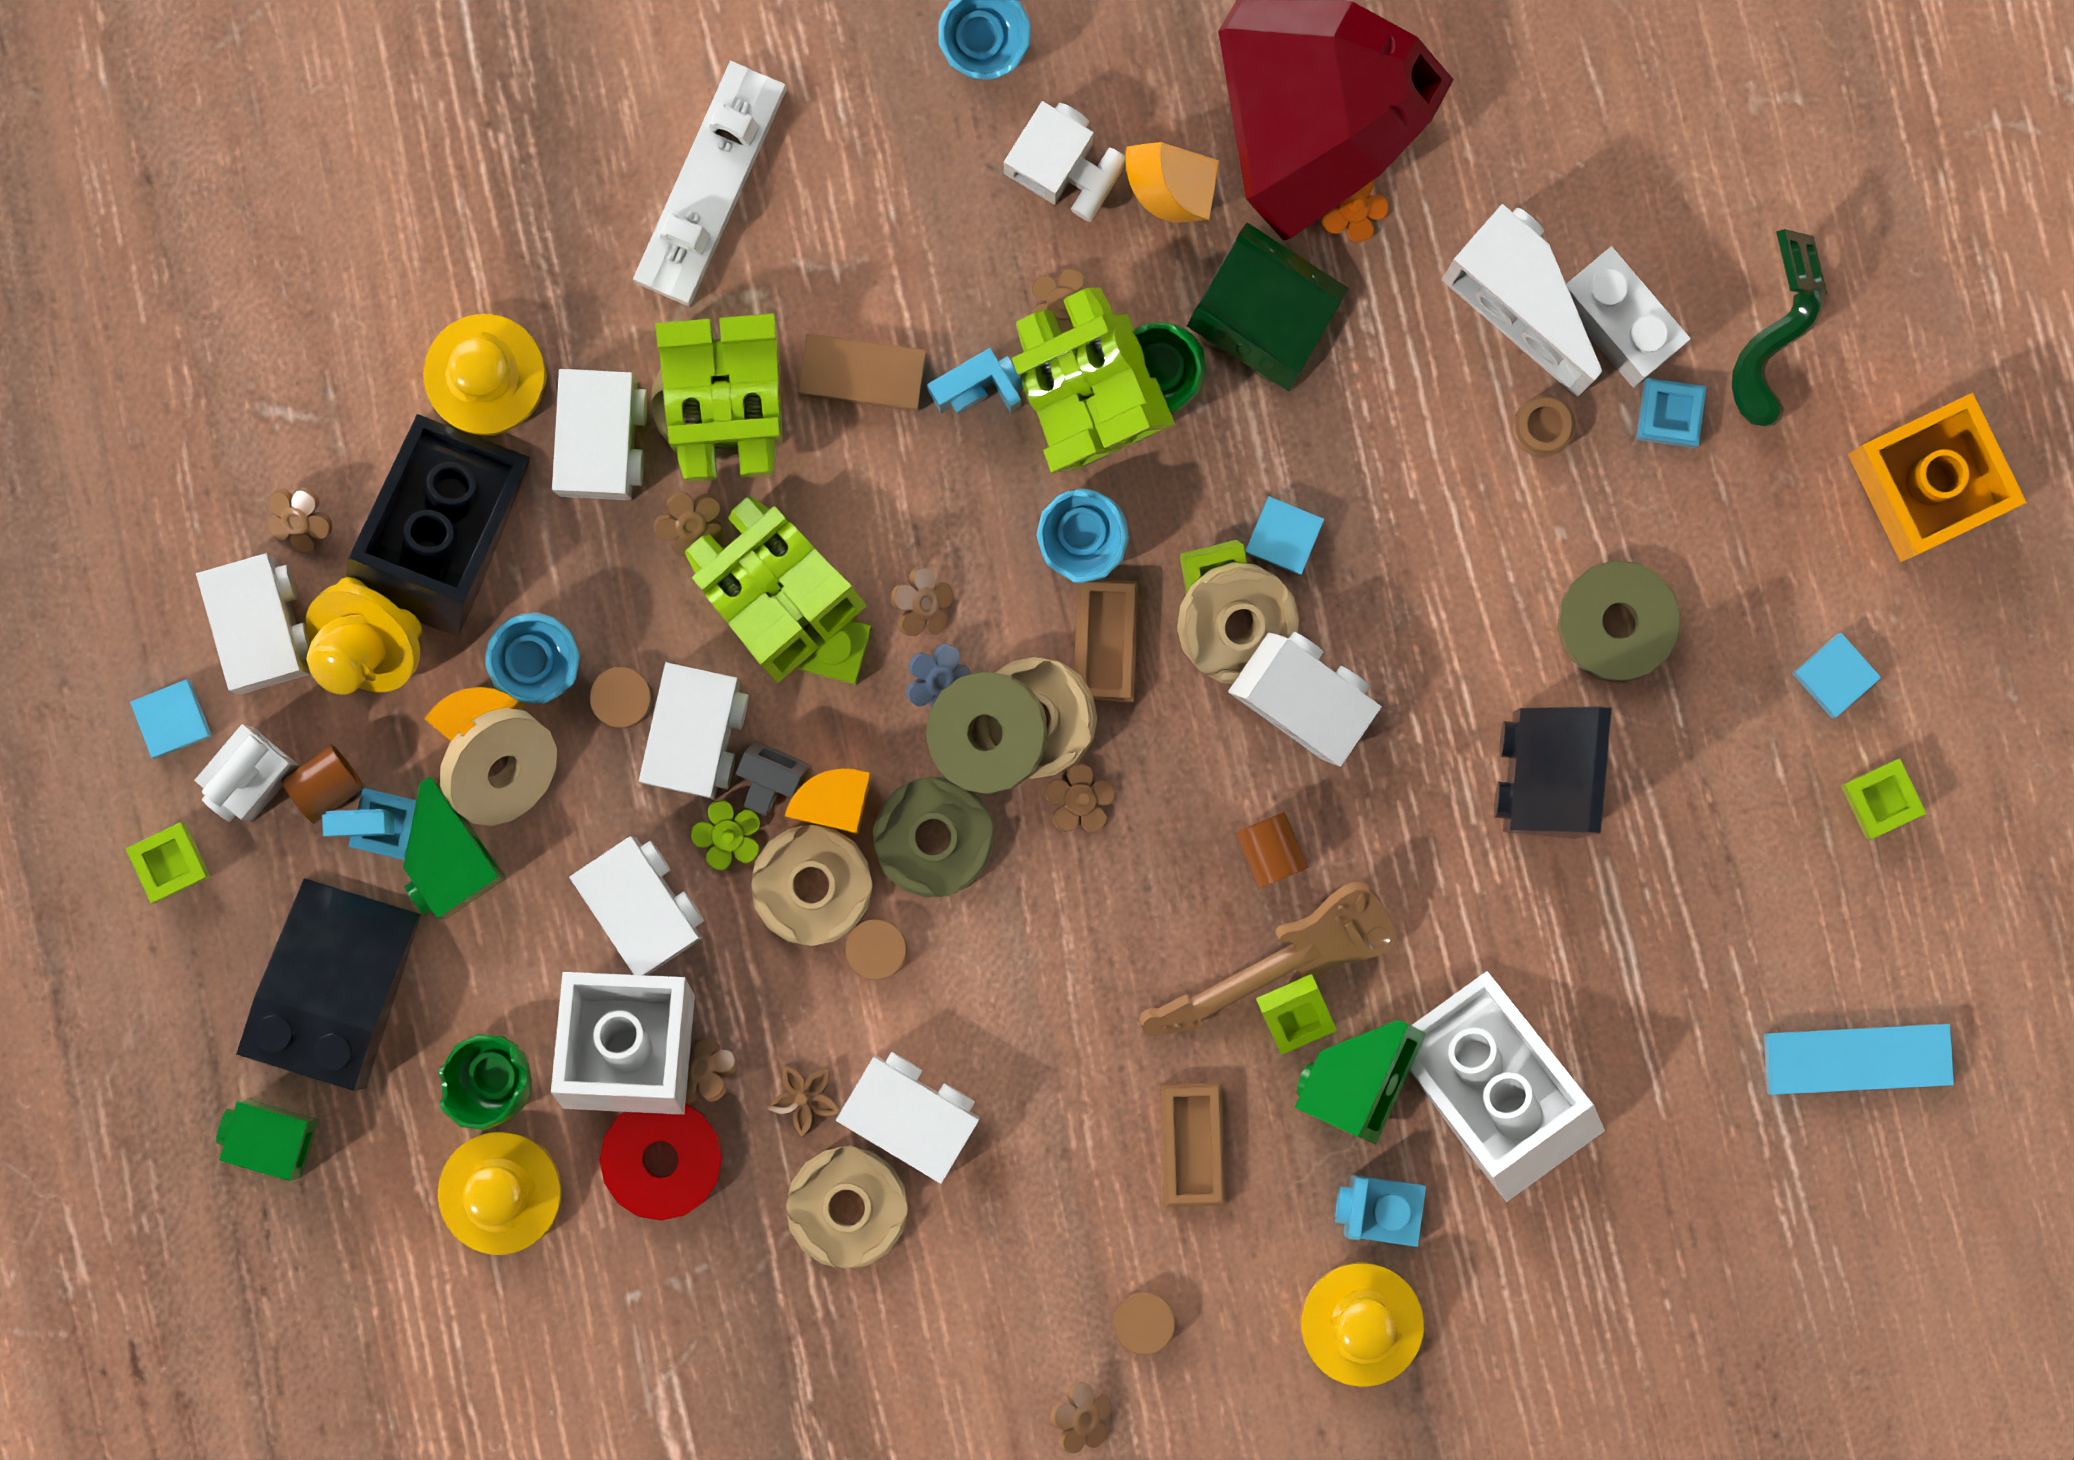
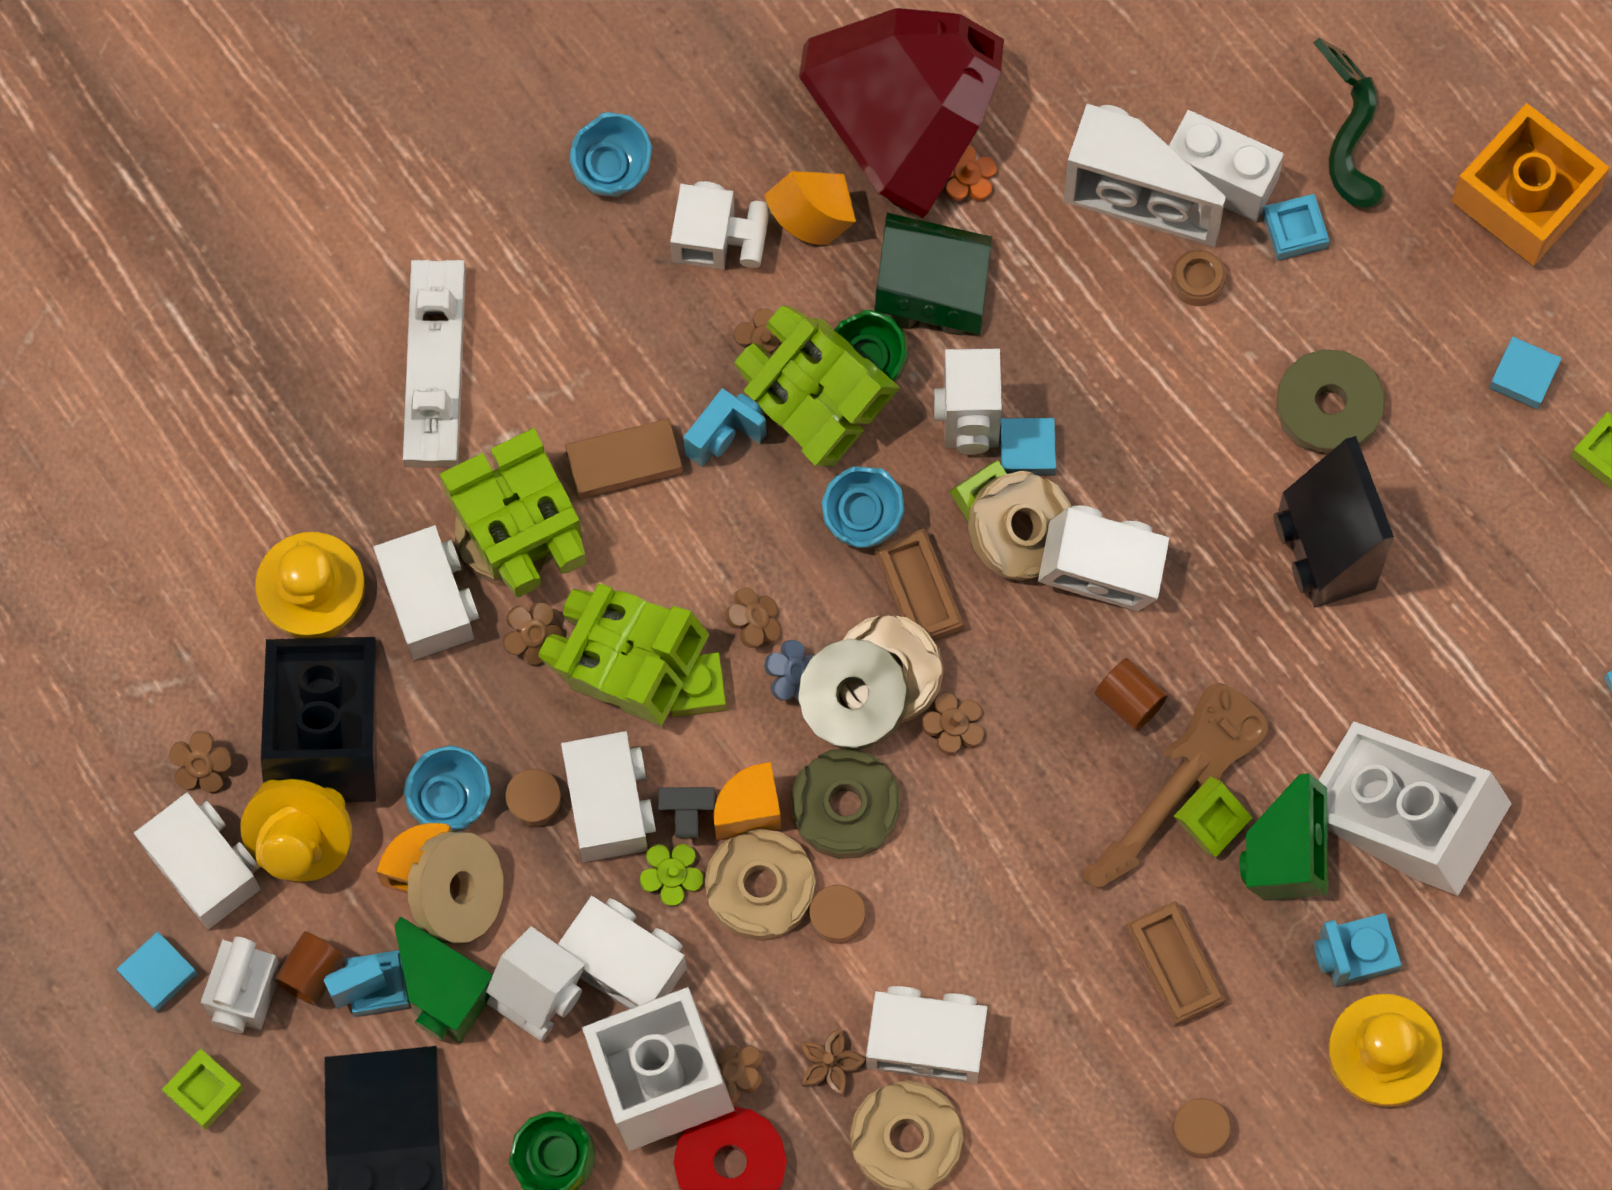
camera: 20 degrees left, 15 degrees down
(540, 900) = (535, 983): none -> white brick
(1240, 471) = (970, 400): none -> white brick

